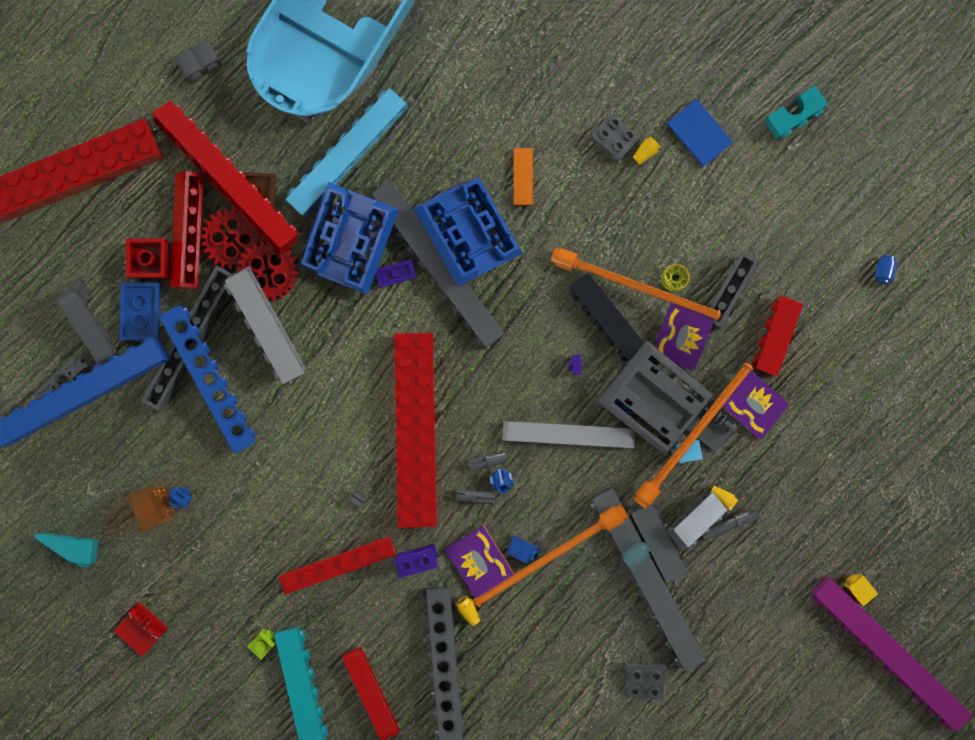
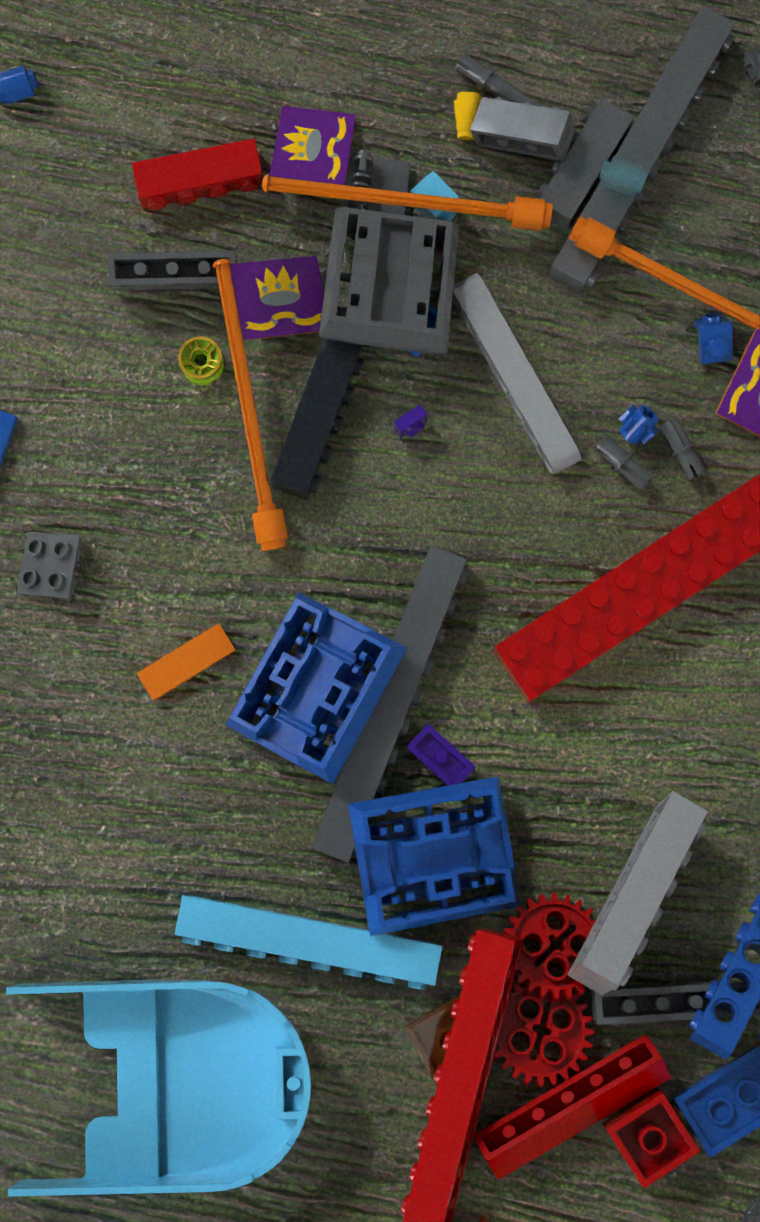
camera: 125 degrees left, 5 degrees down
(646, 150) = (42, 509): yellow cone -> none

